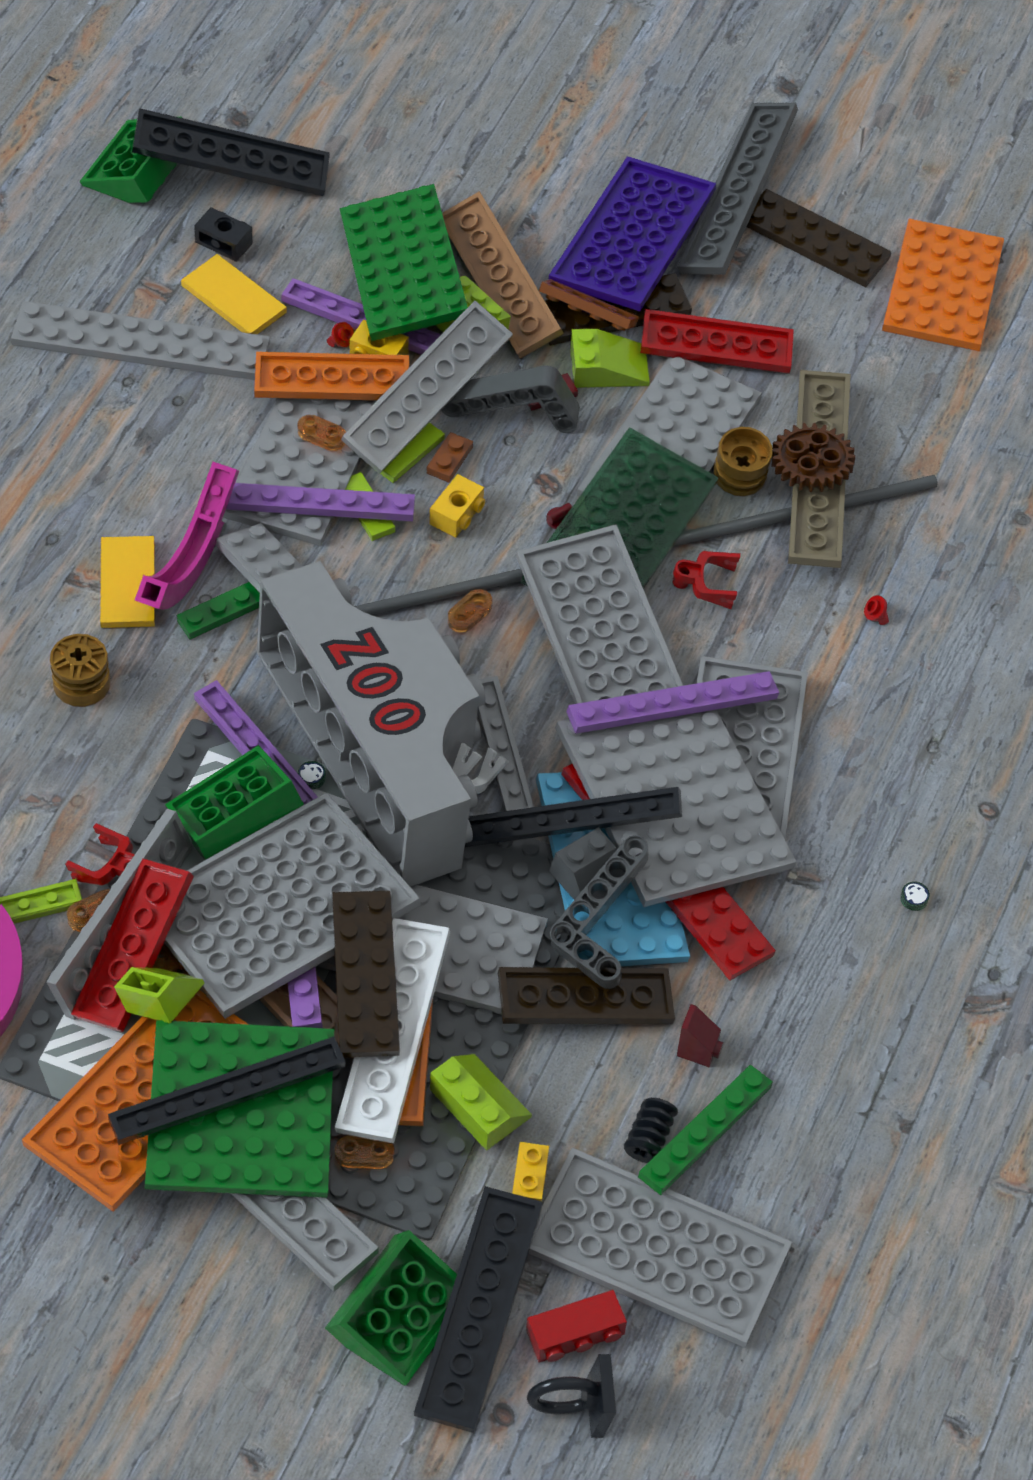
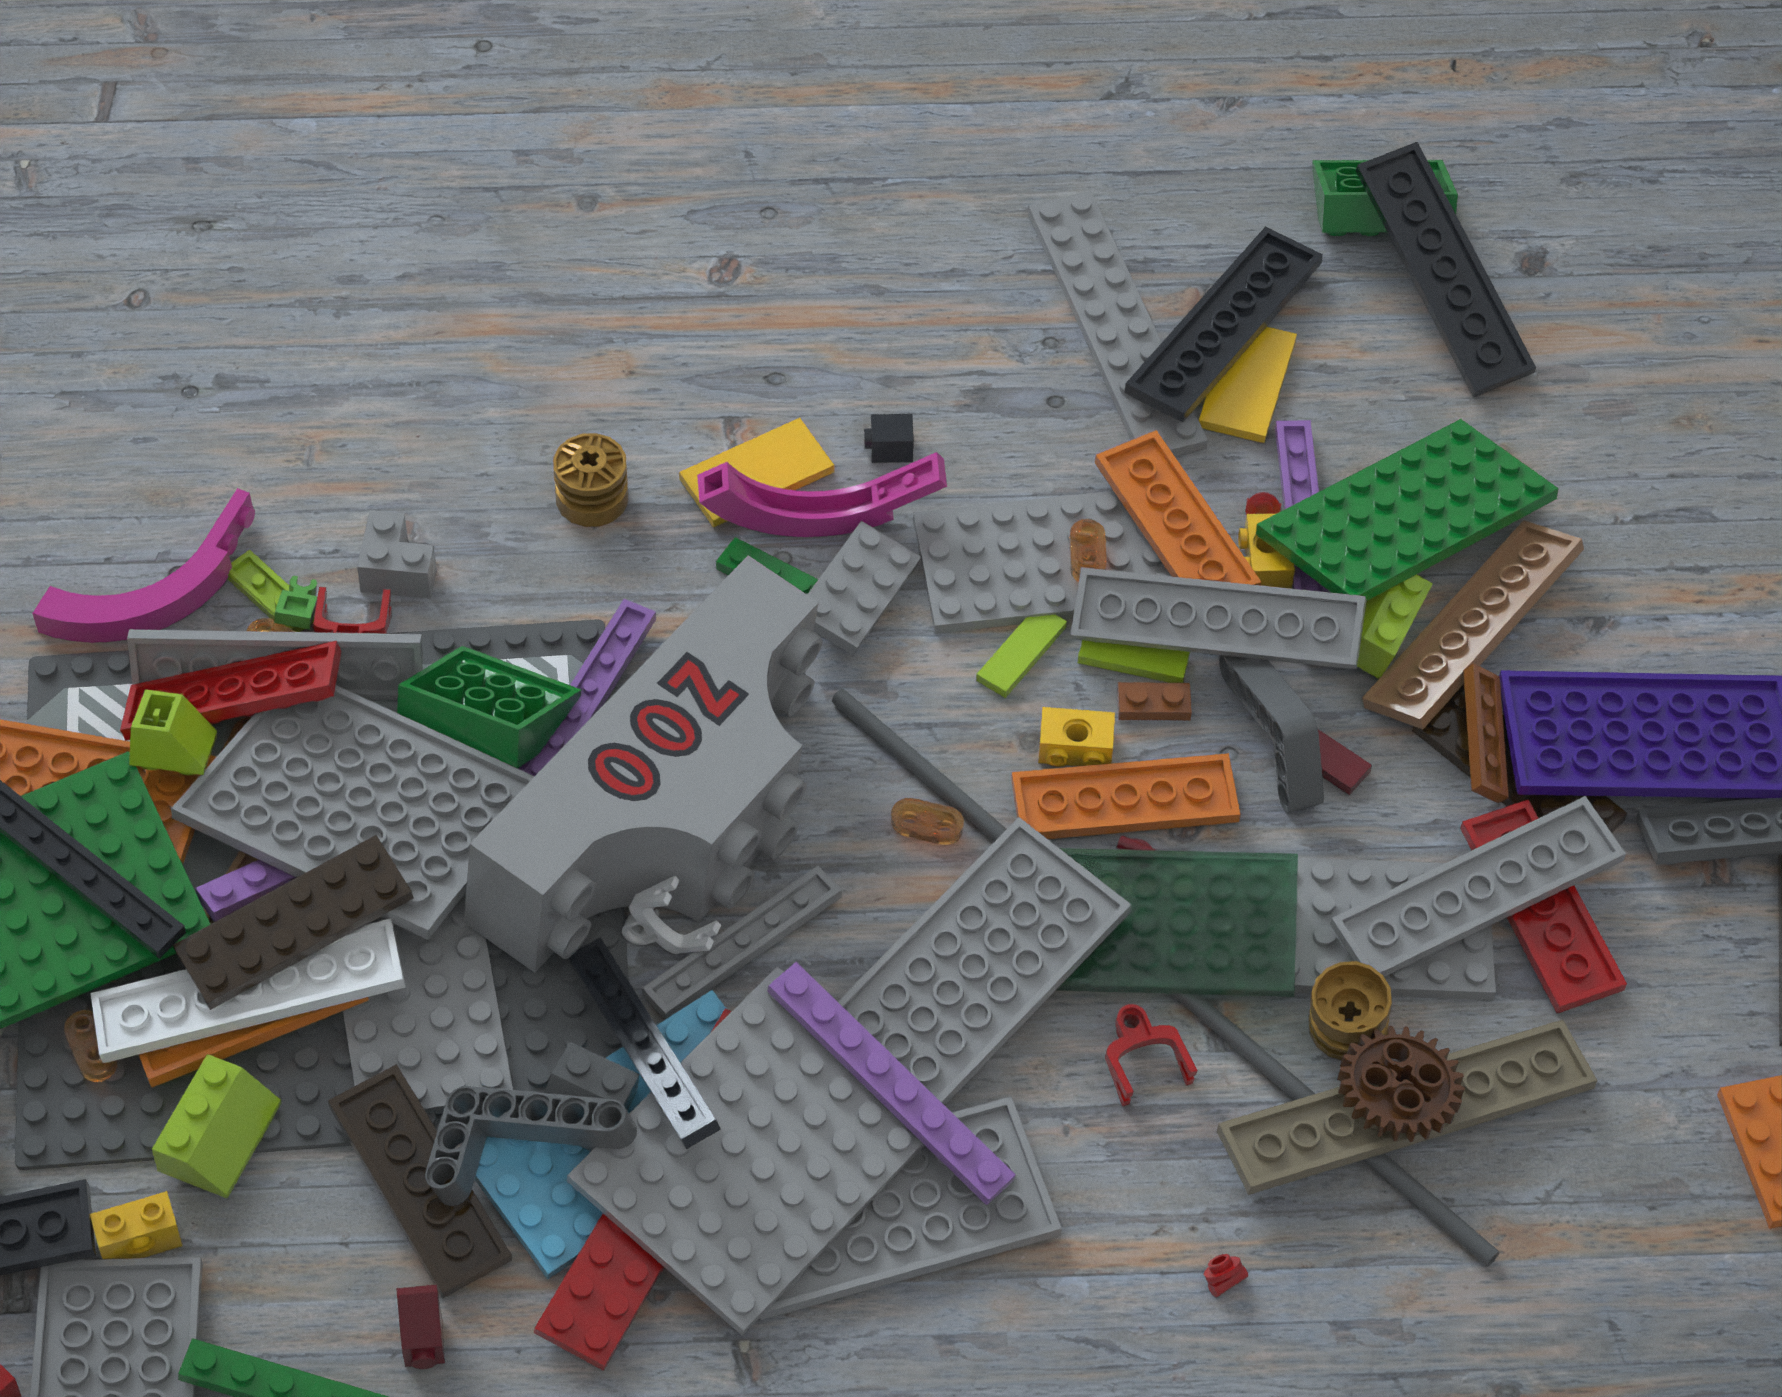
camera: 65 degrees right, 0 degrees up
(64, 818) = (391, 562): none -> light grey brick
(72, 885) = (297, 605): none -> bright green plate
(155, 495) = (890, 438): none -> black brick
(190, 282) = (1223, 324): none -> black plate
(223, 234) = (1330, 325): black brick -> none
(322, 502) = (982, 596): medium lavender plate -> none
(514, 503) = (1127, 796): none -> orange plate
(606, 360) = (1420, 796): lime slope -> none
(650, 1128) = (270, 1331): black piece -> none
(697, 360) = (1478, 888): none -> light grey plate

